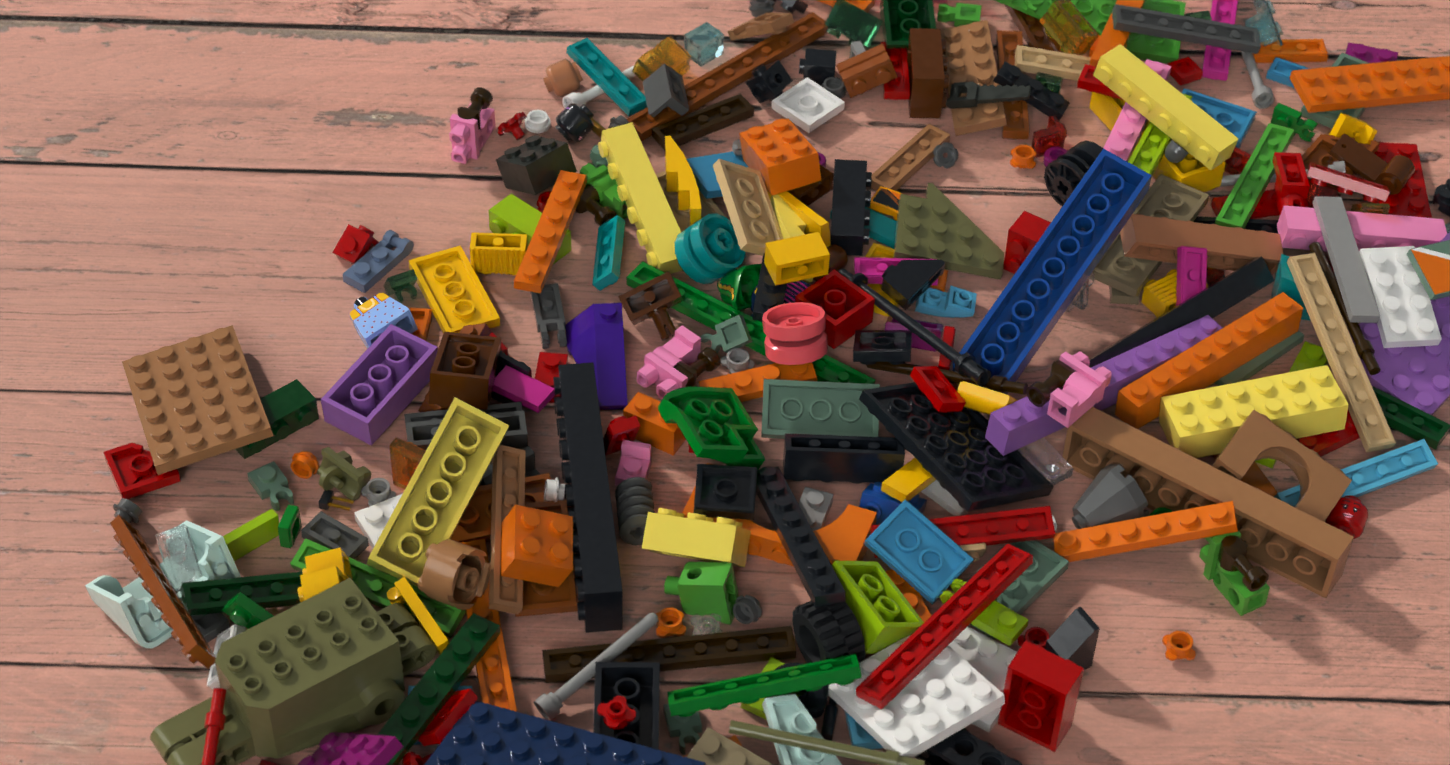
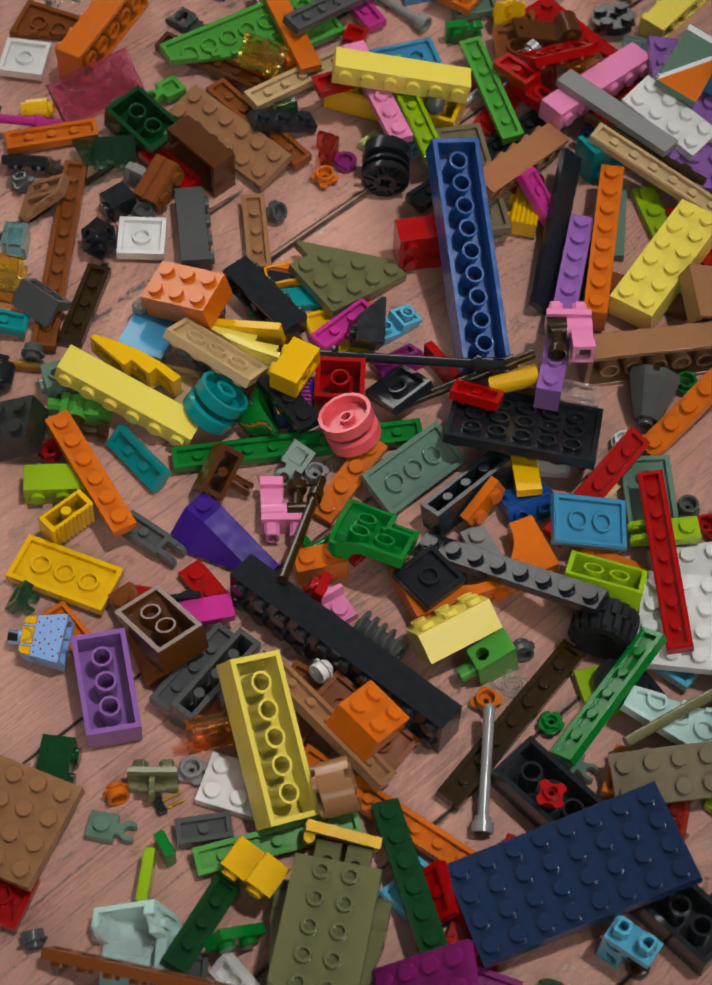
camera: 45 degrees left, 10 degrees up
(702, 673) = (551, 729): none -> green plate
(708, 371) = (314, 497): none -> dark brown bar
(798, 11) = (54, 168): none -> clear smoke plate
(847, 474) = (482, 503): none -> orange plate
(856, 123) = (193, 226): none -> dark grey brick
(984, 94) = (263, 145): pearl dark grey piece -> none
(1039, 614) = (688, 501): none -> dark grey plate

